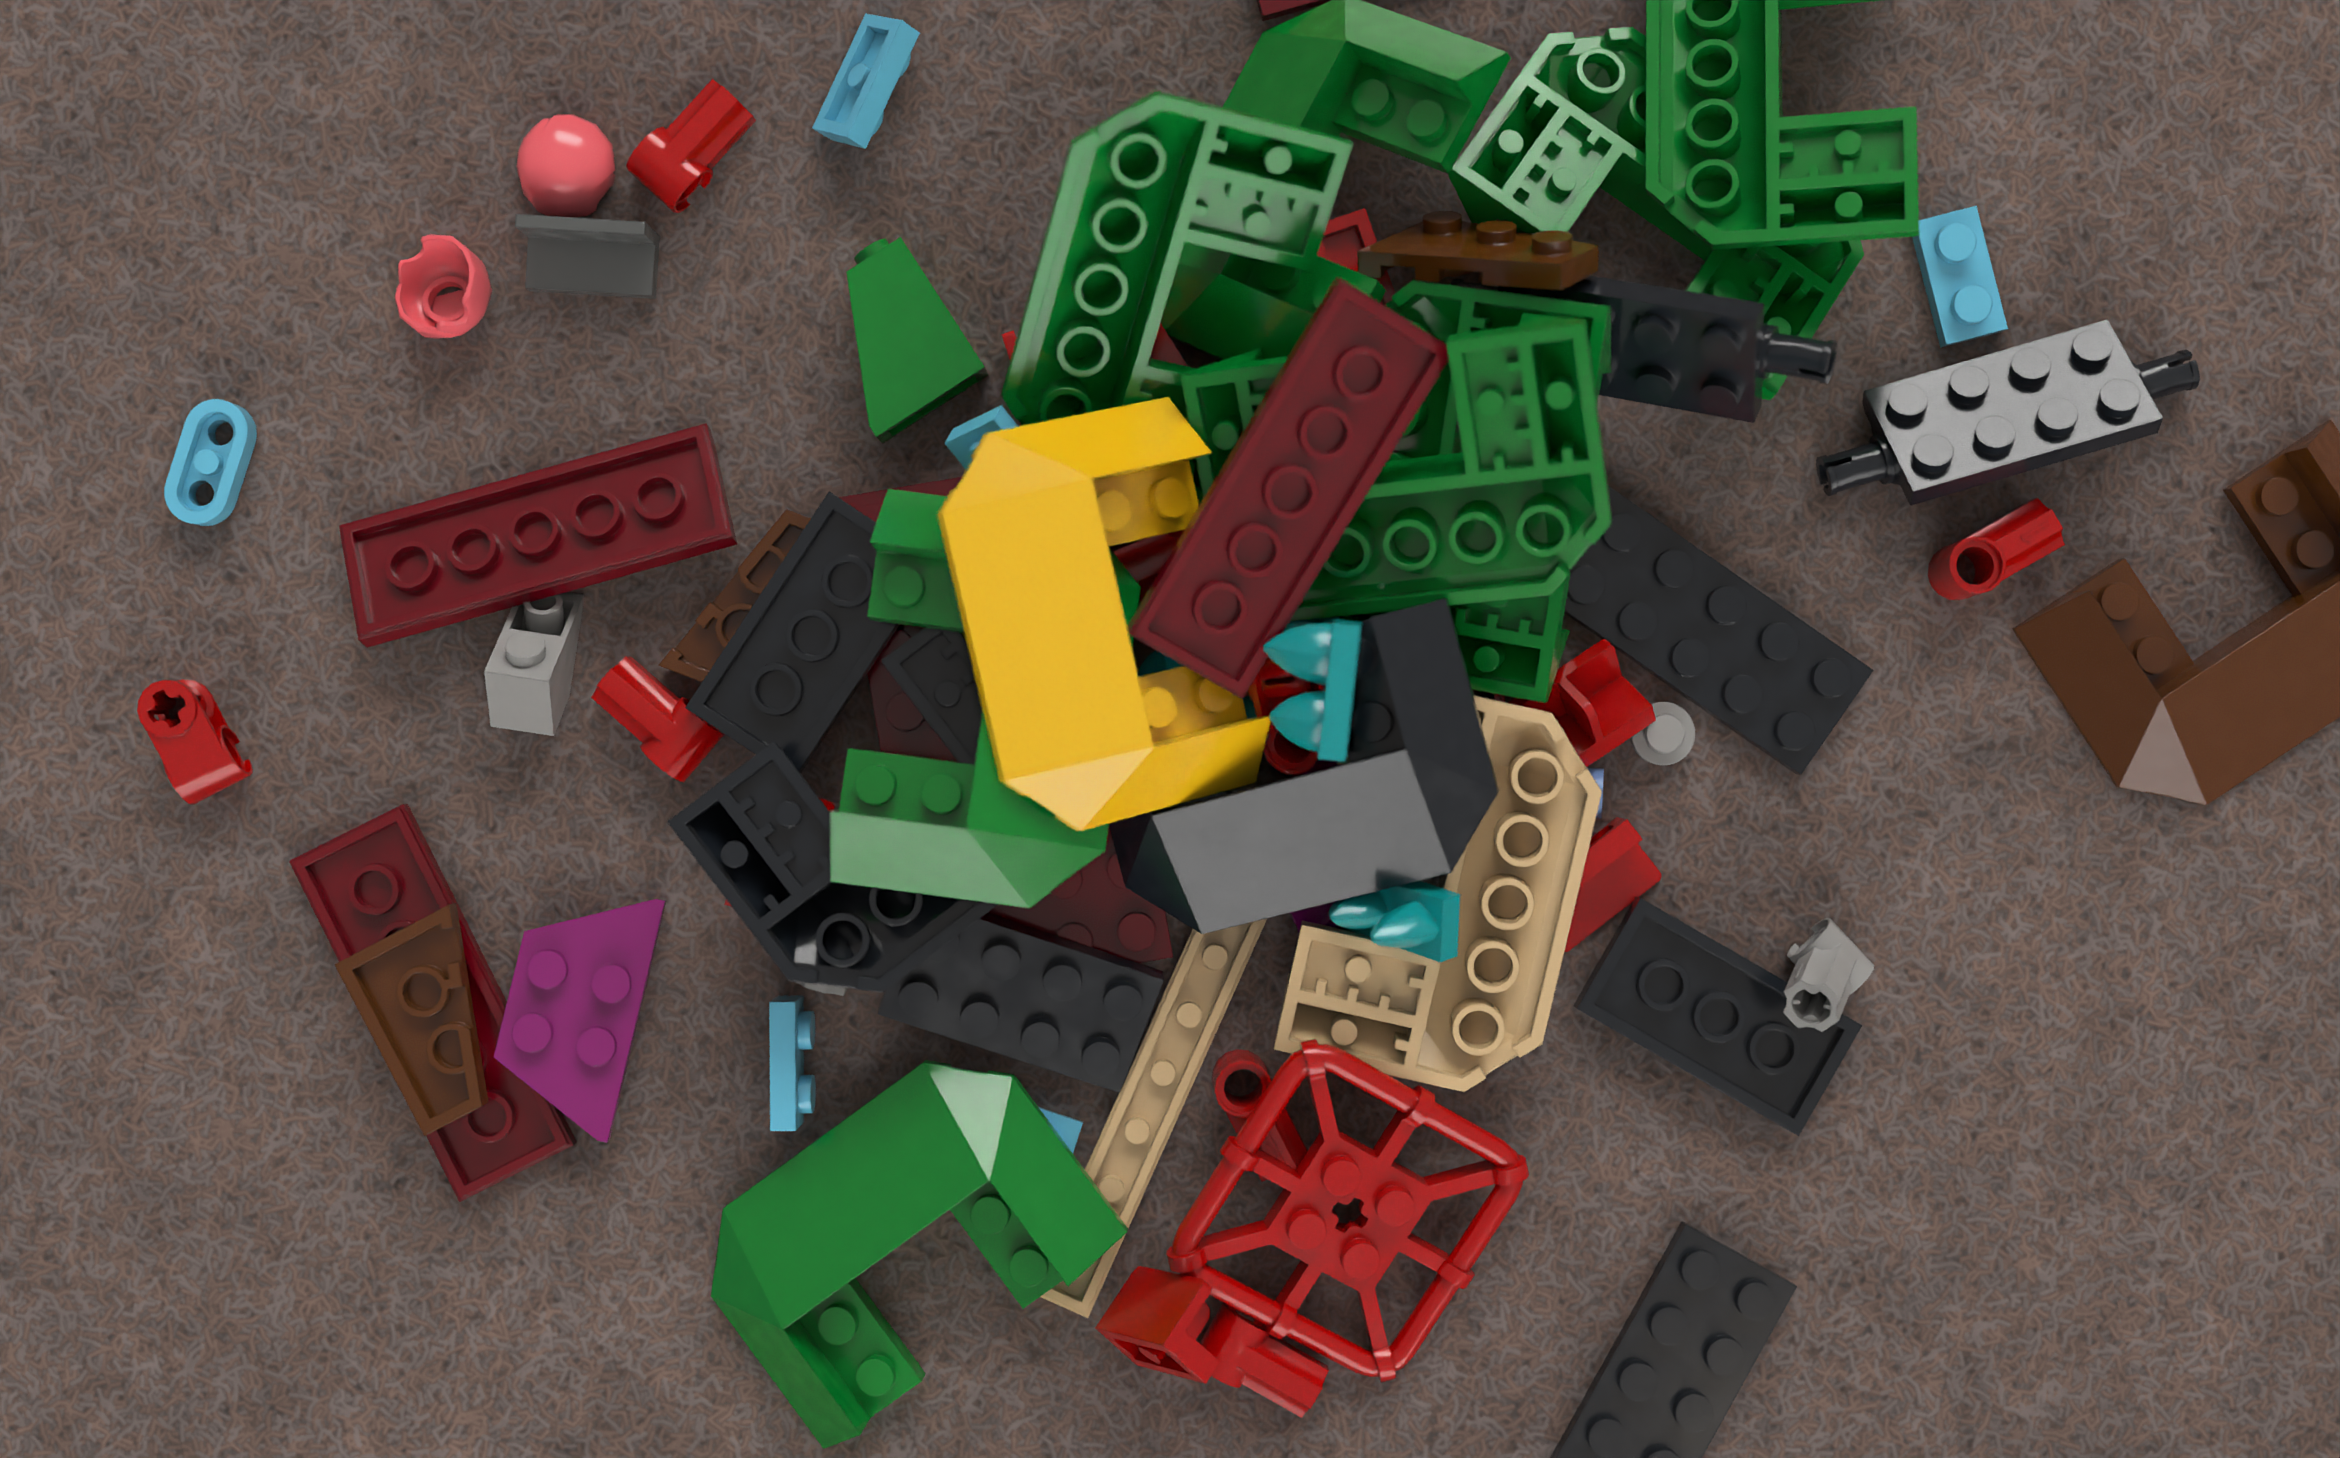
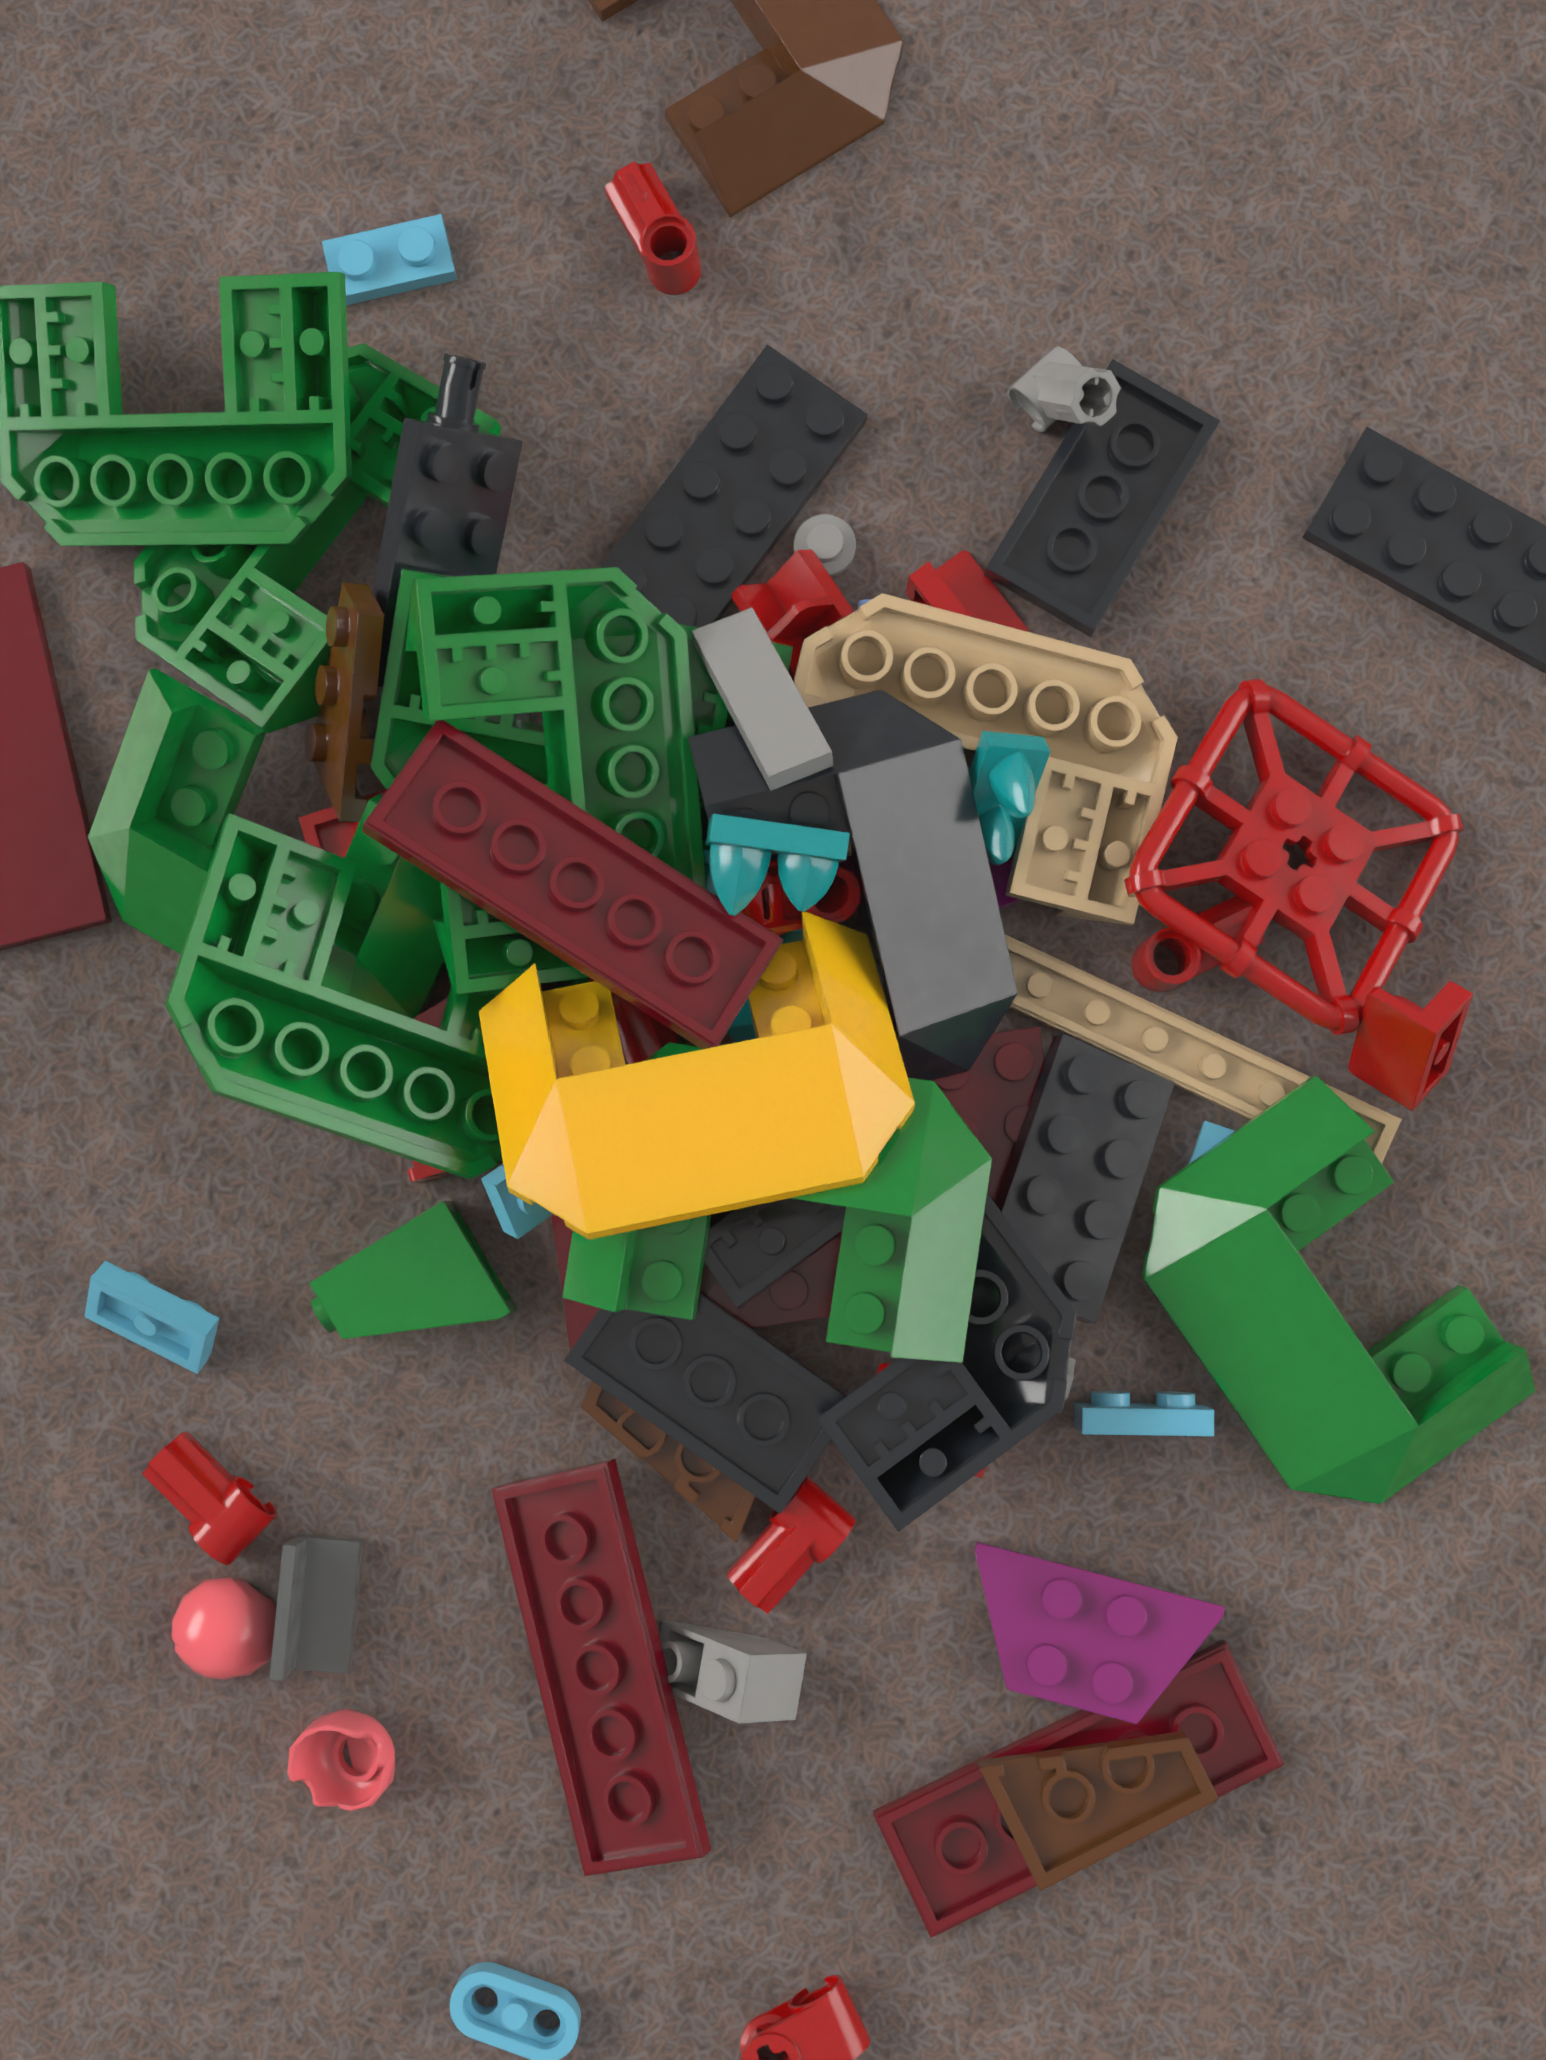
camera: 80 degrees left, 5 degrees down
(1263, 1362) = (1445, 943): red piece -> none
(1483, 672) = (762, 699): none -> light grey tile
(2007, 414) = (523, 215): plate -> none

